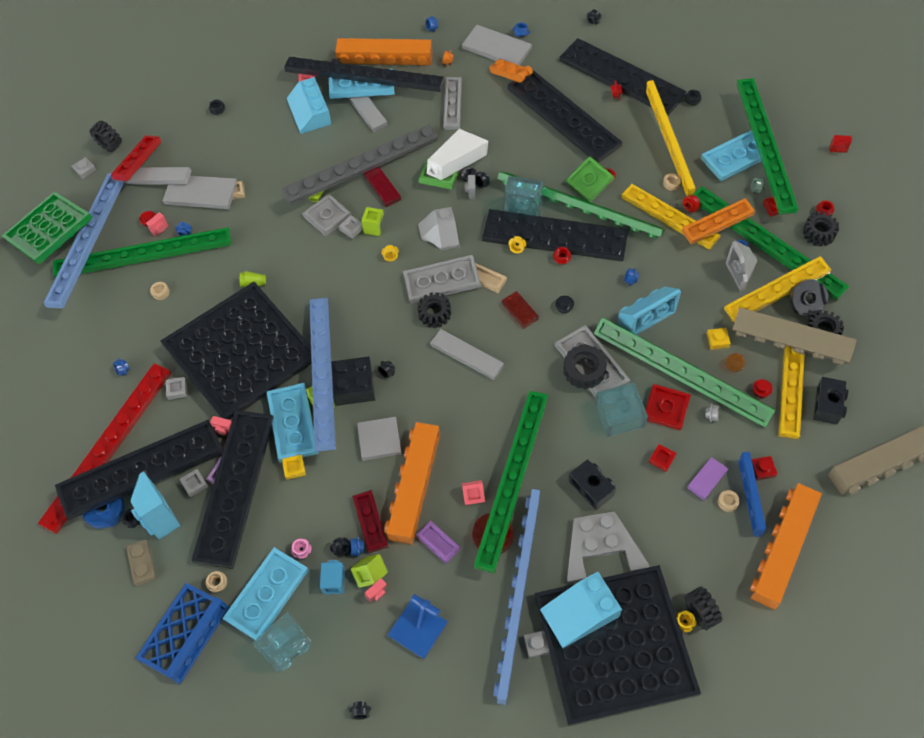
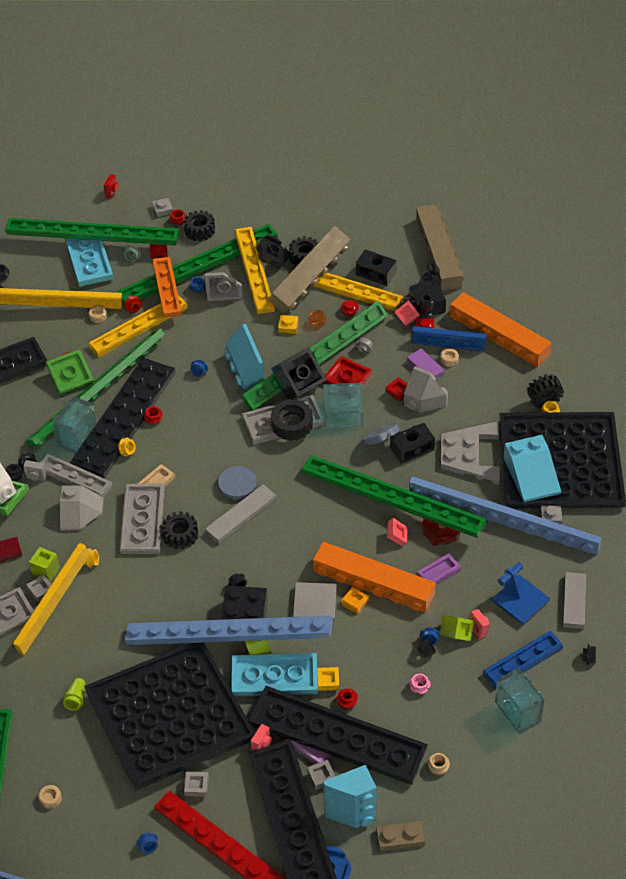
camera: 80 degrees left, 10 degrees down
(127, 516) = (351, 836): black plate -> none
(194, 639) = (499, 784): blue fence -> none
(266, 594) = (462, 718): medium azure plate -> none
(276, 493) = (347, 703): none -> red plate
(332, 577) = (457, 658): dark azure brick -> none
(336, 234) = (51, 599): none -> yellow tile
(346, 643) = (525, 657): none -> blue tile
(370, 521) = (402, 623): dark red tile -> none
(388, 472) = (355, 600): none -> light orange tile
(428, 685) = (574, 600): none -> light grey tile
(477, 218) = (75, 476): none -> light grey tile
(502, 342) = (237, 482): none -> sand blue tile
(520, 310) = (203, 462): clear red plate -> none
(564, 304) = (211, 425): black plate -> none
(592, 451) = (380, 434): none -> sand blue tile
(641, 357) = (298, 373): none -> black brick
(658, 480) = (423, 392): none -> light grey slope
(772, 444) = (407, 313): none -> coral plate
(806, 457) = (426, 294): none -> black torso
(834, 193) = (162, 207): none -> light grey plate

